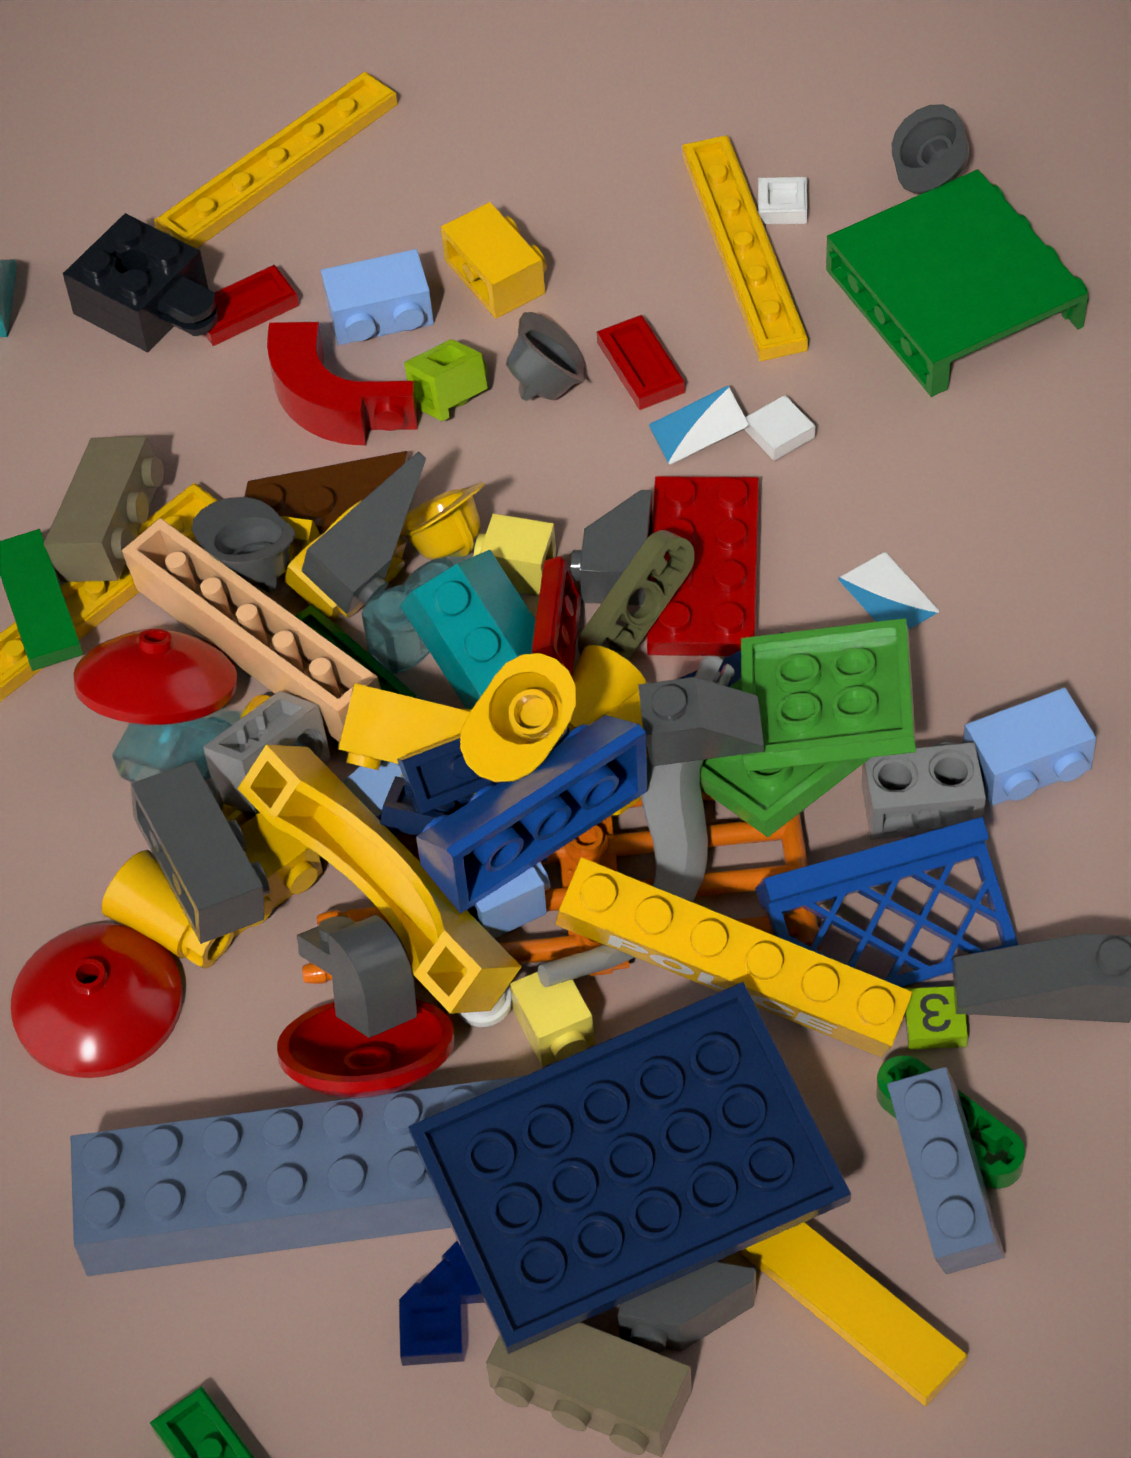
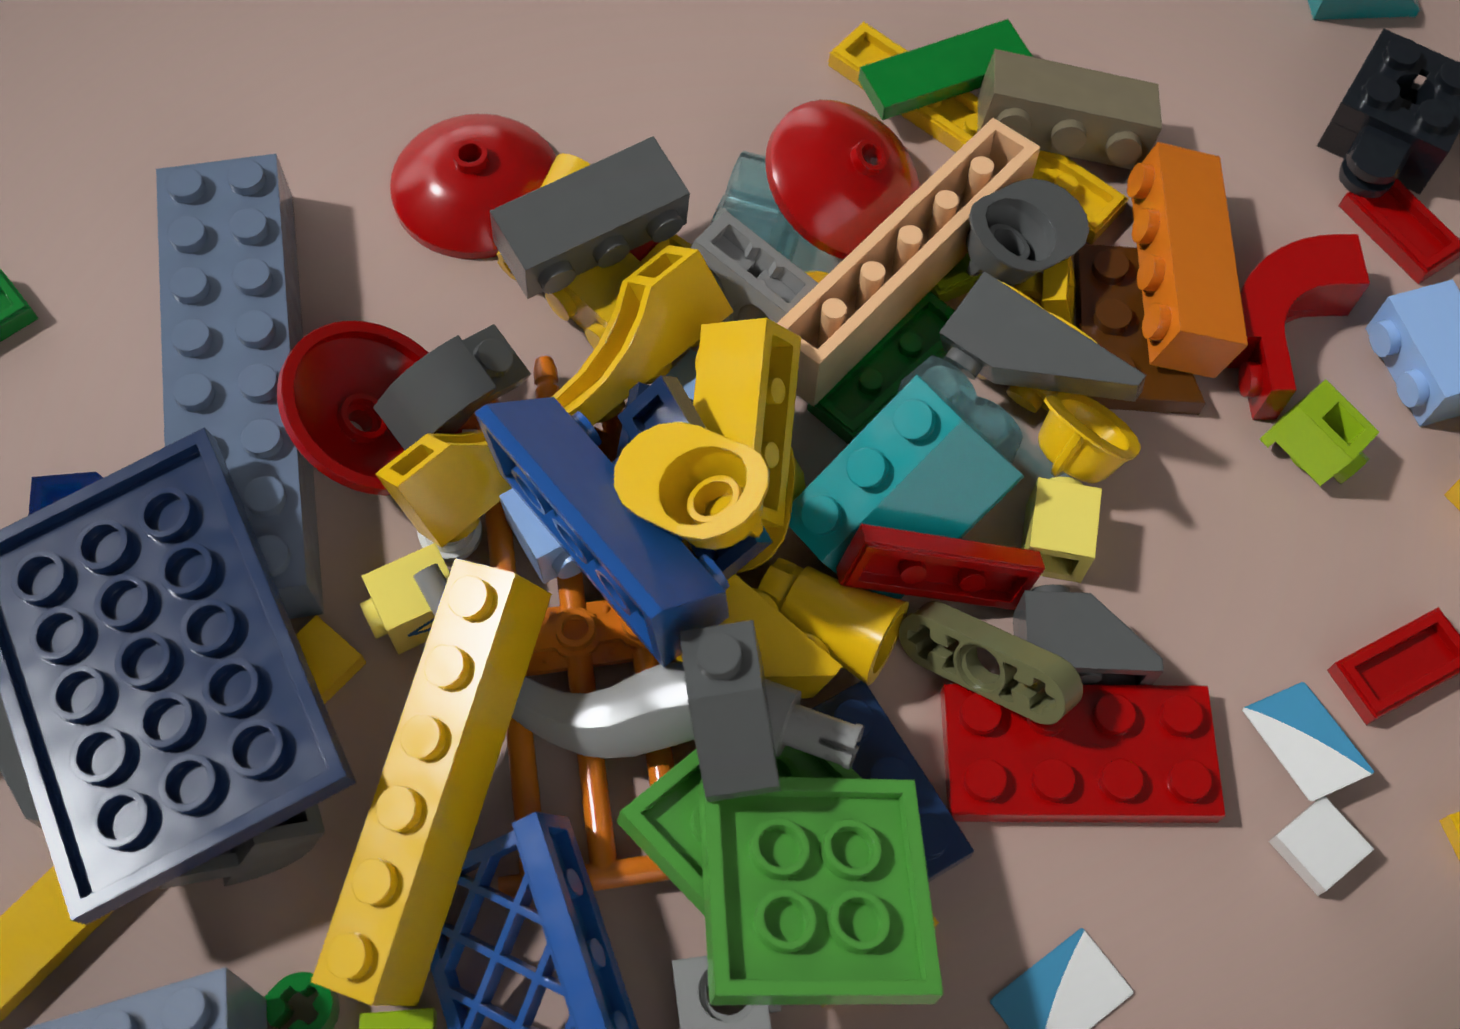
camera: 80 degrees right, 10 degrees up
(273, 441) = (1186, 261): none -> orange brick
(544, 358) = (1379, 544): dark grey piece -> none

